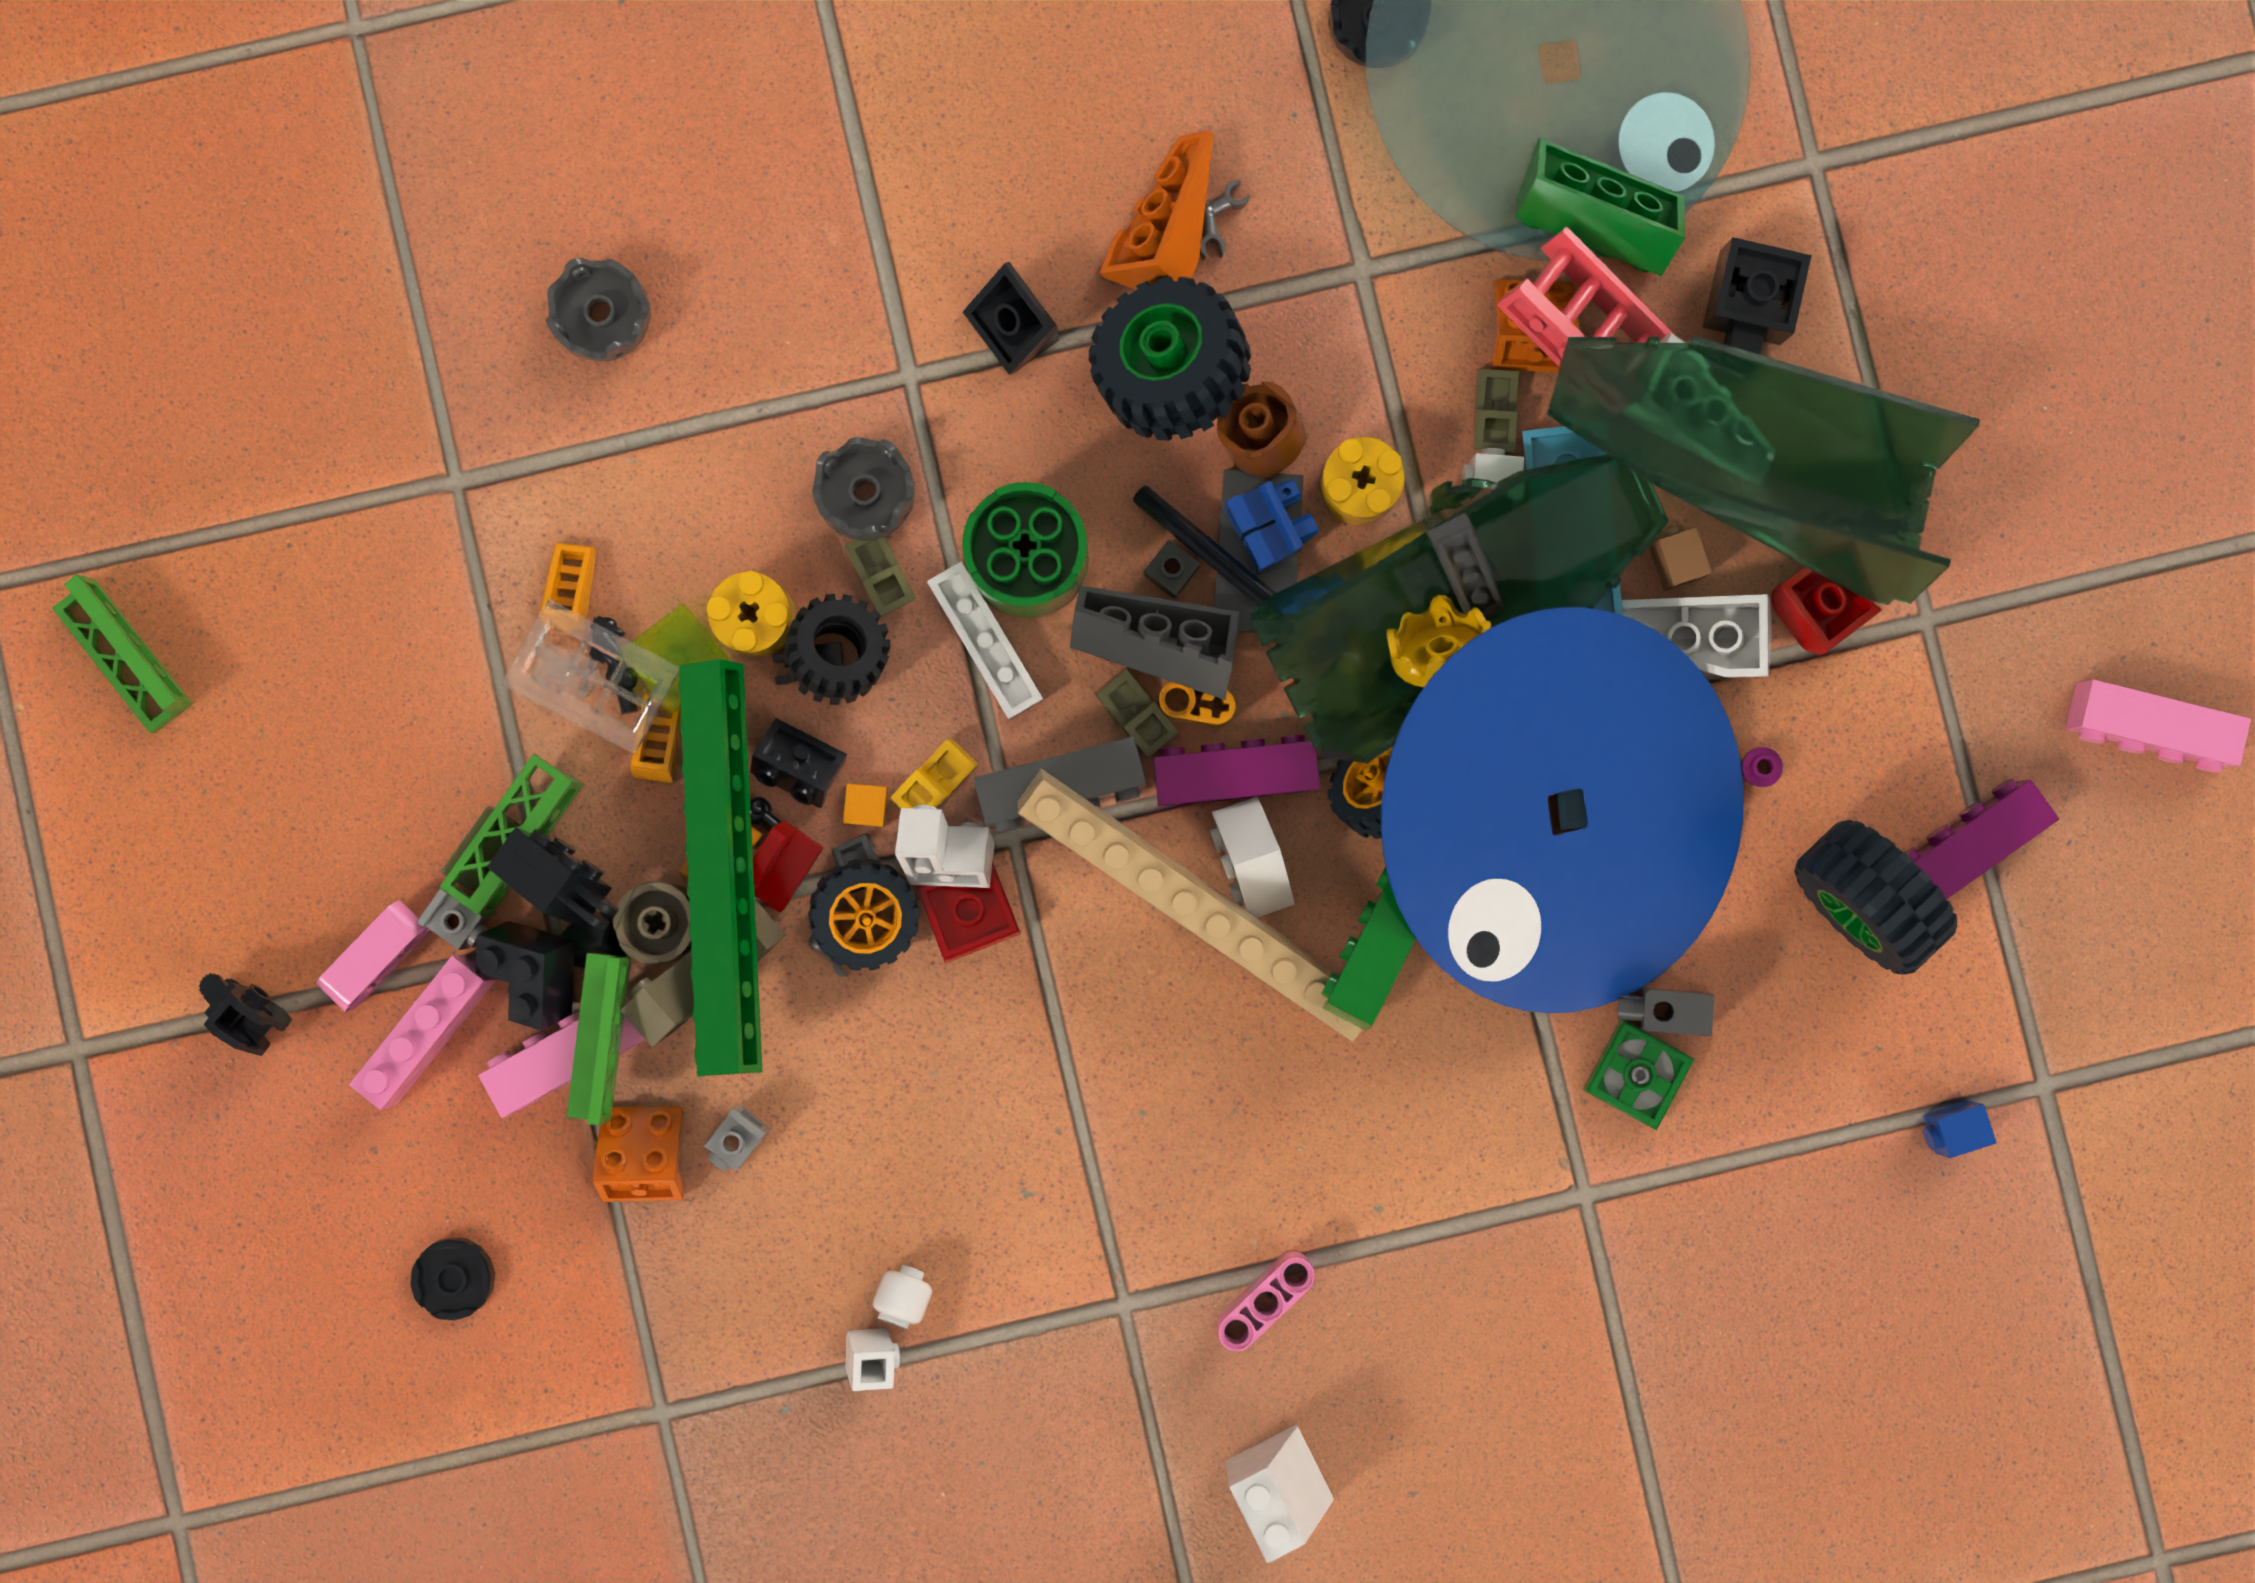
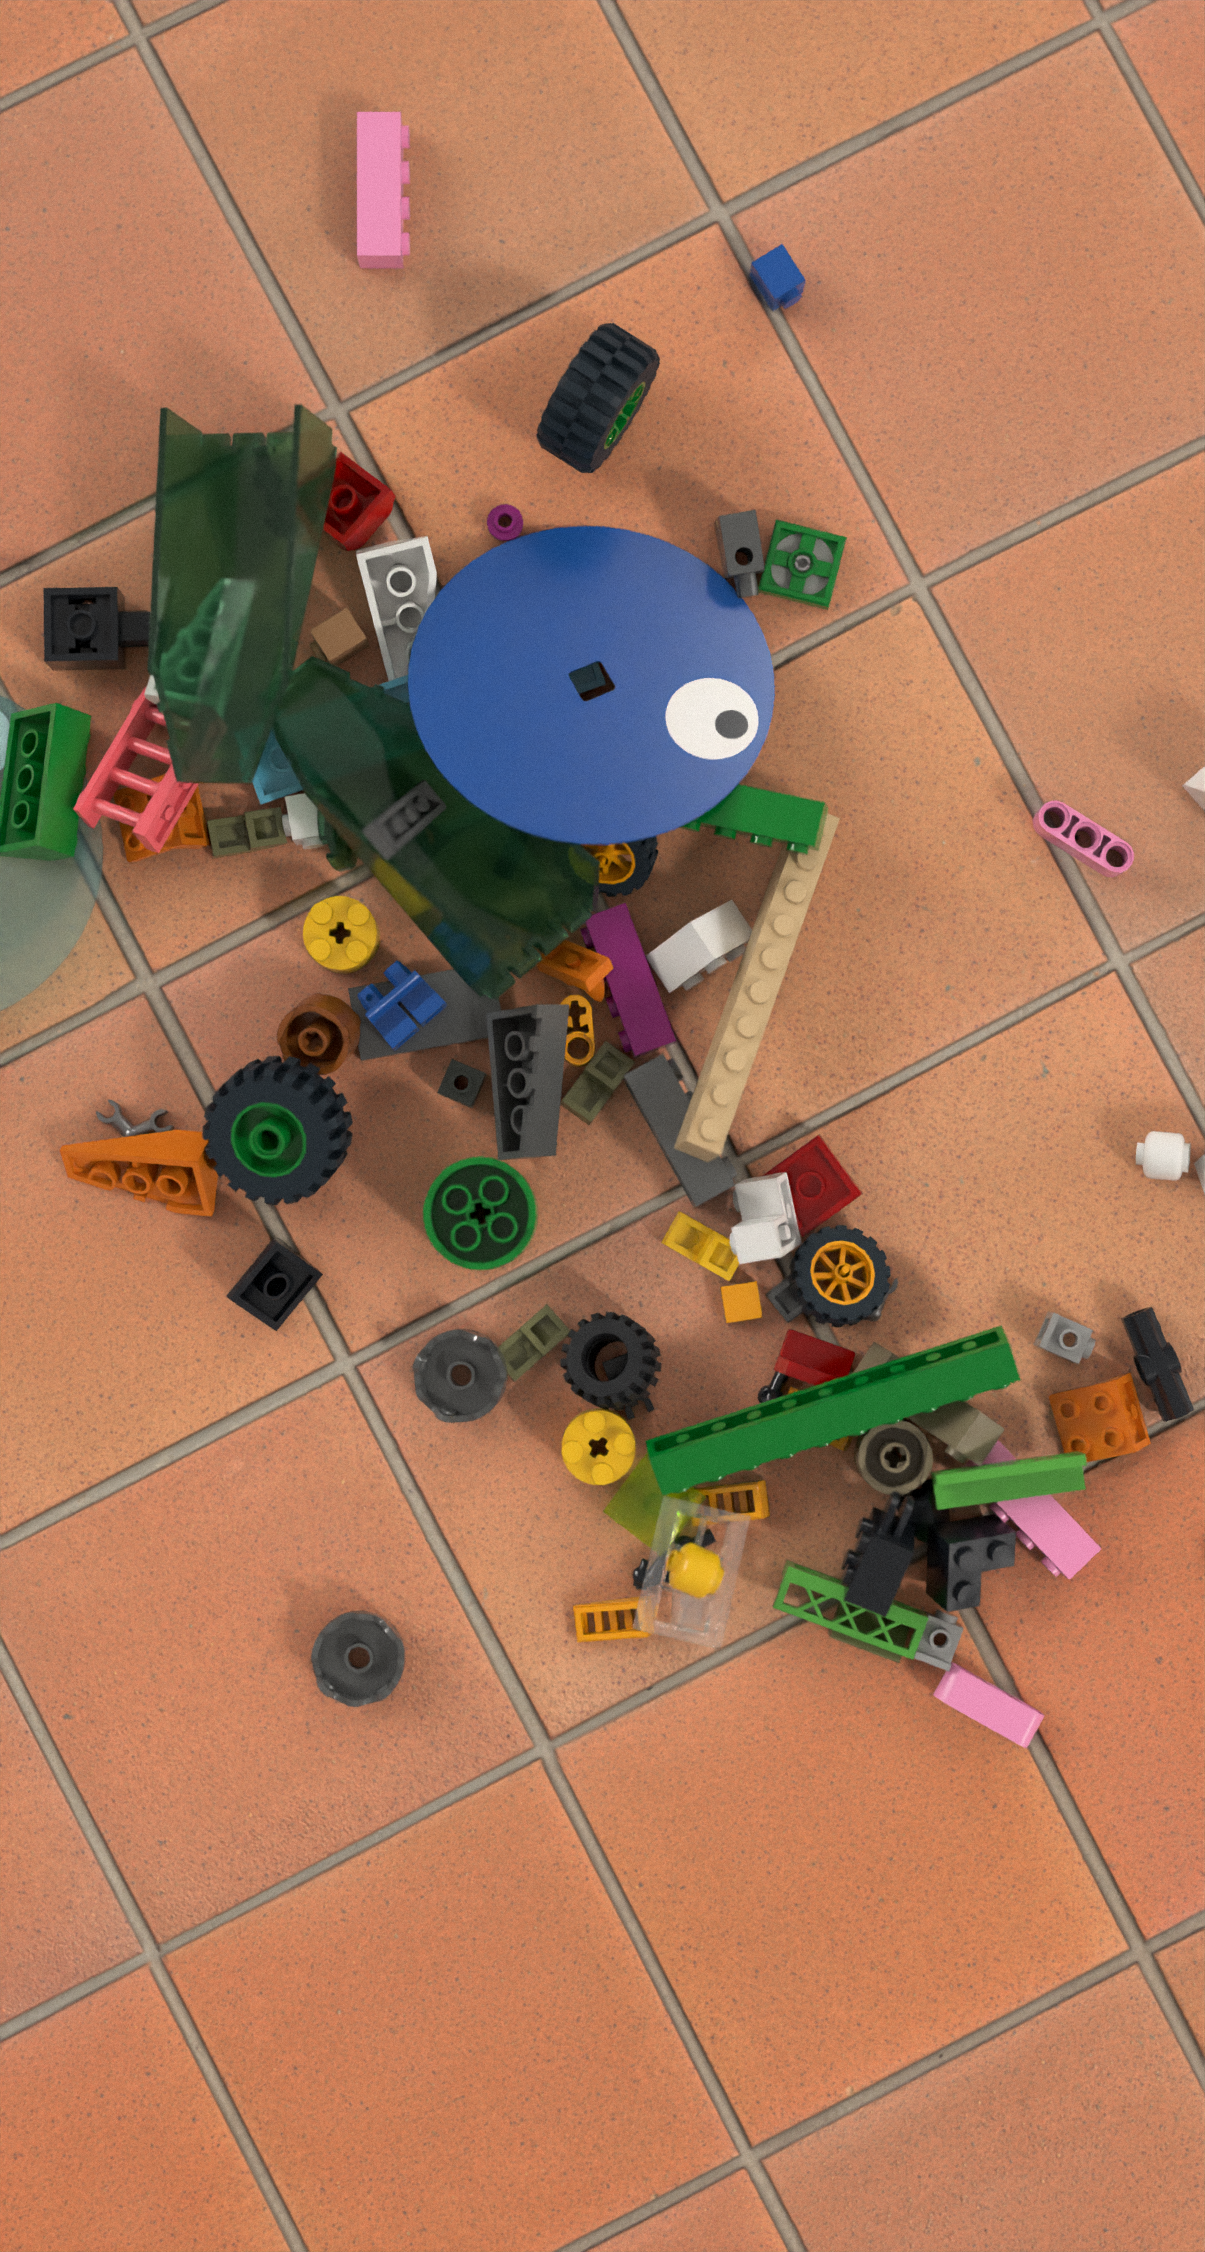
camera: 105 degrees left, 0 degrees up
(128, 649) = (768, 2003): bright green fence -> none
(241, 1013) = (1069, 1807): black hinge -> none
(422, 1032) = (1044, 1641): bright pink brick -> none
(588, 677) = (694, 1570): none -> yellow head
(682, 1231) = (1157, 1364): none -> black piece
(796, 763) = (720, 1372): black bracket -> none
(985, 640) = (568, 1232): white plate -> none
(1202, 545) = (435, 1059): black axle -> none
(1262, 720) = (577, 968): none -> orange tile
(1437, 629) = (460, 834): yellow plate -> none
(1984, 835) = (520, 319): magenta brick -> none

